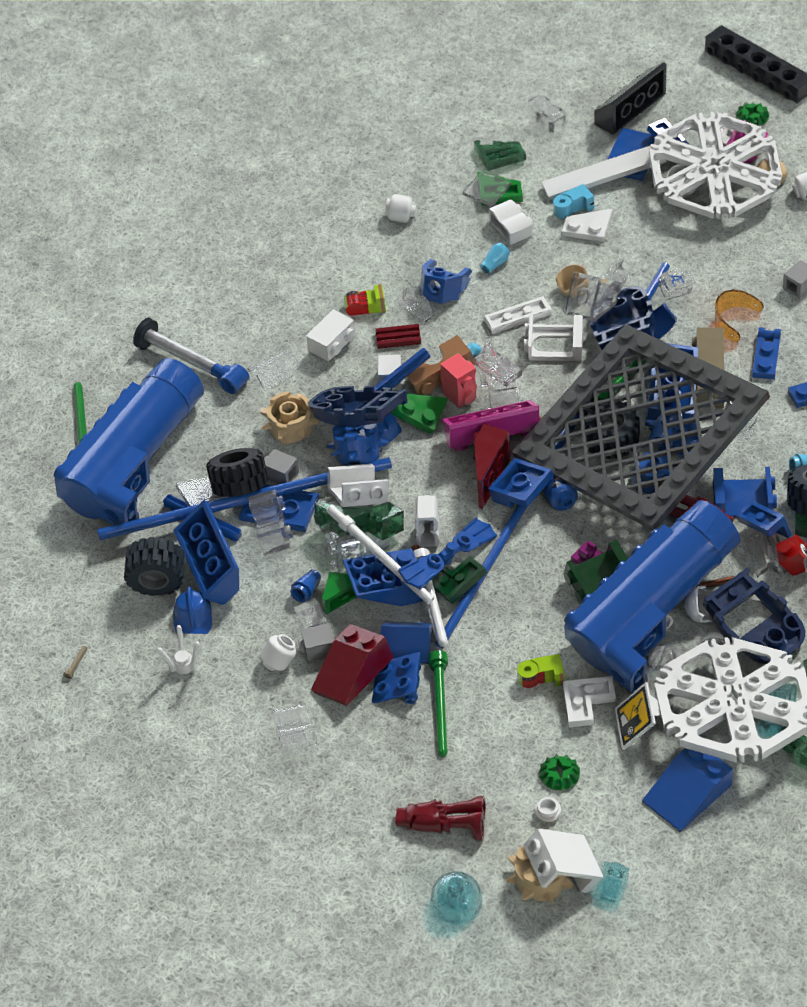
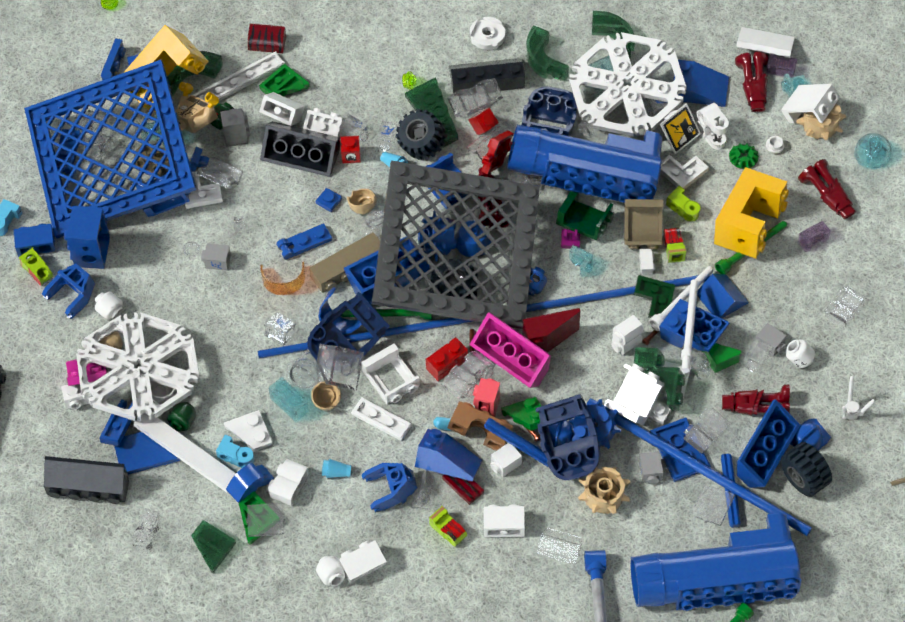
camera: 130 degrees left, 10 degrees up
(237, 472) = (702, 481): black tyre -> none
(268, 584) = (750, 401): none -> dark red piece
(305, 586) = (731, 381): blue cone -> none
(351, 664) = (774, 305): dark red slope -> none
(387, 228) = (362, 561): none -> white brick
(398, 679) = (756, 279): blue hinge -> none
(399, 768) = (813, 236): none -> clear purple piece
(424, 569) = (677, 298): blue piece -> none
(428, 325) = (446, 456): none -> blue slope
(494, 720) = (734, 224): none -> yellow piece
(497, 365) = (462, 371): clear tile -> none
(500, 634) = (674, 245): none -> leg
(503, 601) = (646, 261): none -> white piece
(519, 483) = (547, 298): blue plate -> none
(533, 380) = (446, 358): none -> red brick
(534, 197) = (248, 480): none -> blue brick
(542, 614) = (643, 223): none -> dark tan panel
(551, 547) = (583, 258): none -> clear light blue bracket
(593, 255) = (288, 399): none -> clear light blue brick
(620, 749) = (709, 124): none -> white piece
(639, 840) = (756, 87): none -> dark red piece
(641, 183) = (181, 416): none -> dark green head
(648, 884) = (780, 66): none -> clear purple piece
(694, 889) = (765, 42): none -> white tile
(739, 519) = (498, 149): none -> red plate
(758, 118) = (46, 399): green gear -> none
(763, 520) = (472, 148): blue panel -> none
(777, 407) = (363, 196): none -> tan hair

